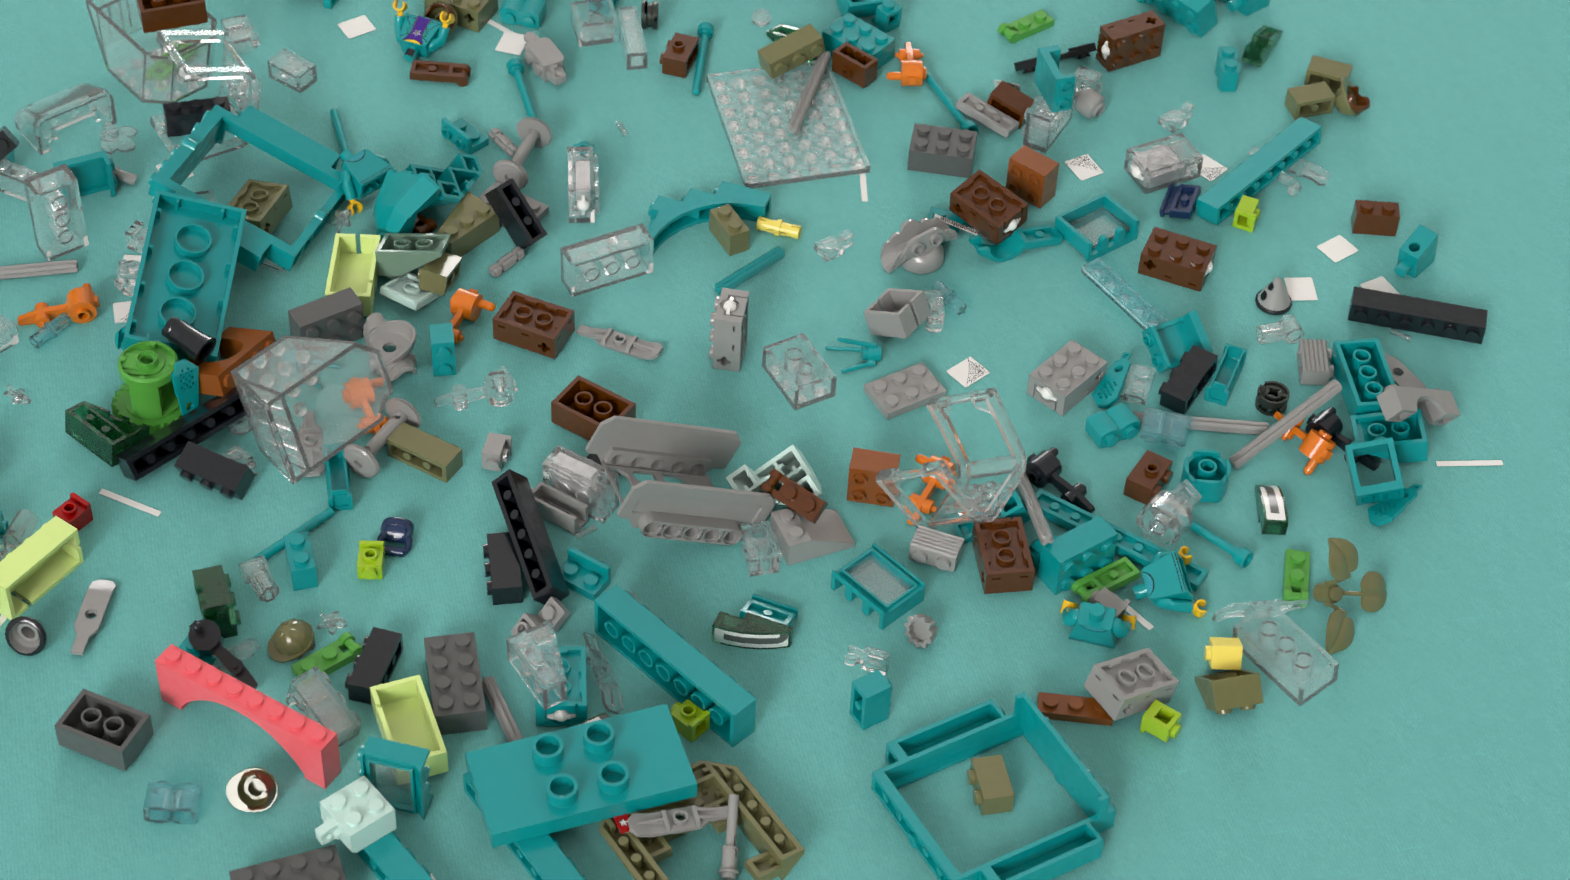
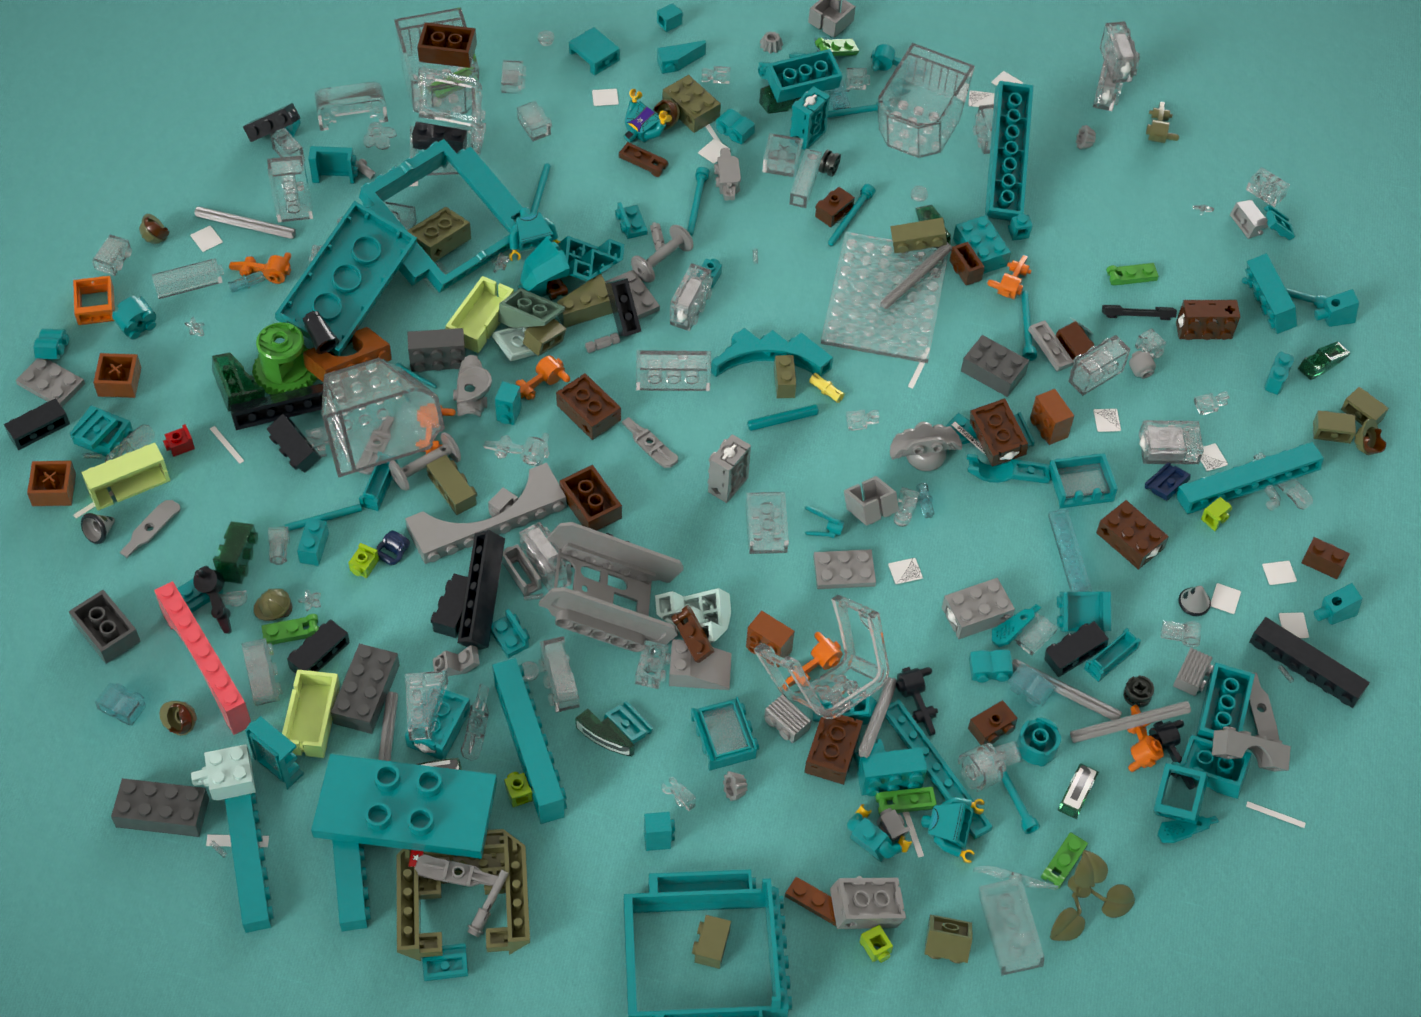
camera: 25 degrees right, 10 degrees up
(186, 385) = (303, 367): teal piece -> none
(444, 509) = (443, 538): none -> light grey arch
(665, 593) = (558, 675): none -> clear wedge
(1053, 86) = (1108, 329): teal panel -> none
(1224, 653) = (961, 905): light yellow brick -> none

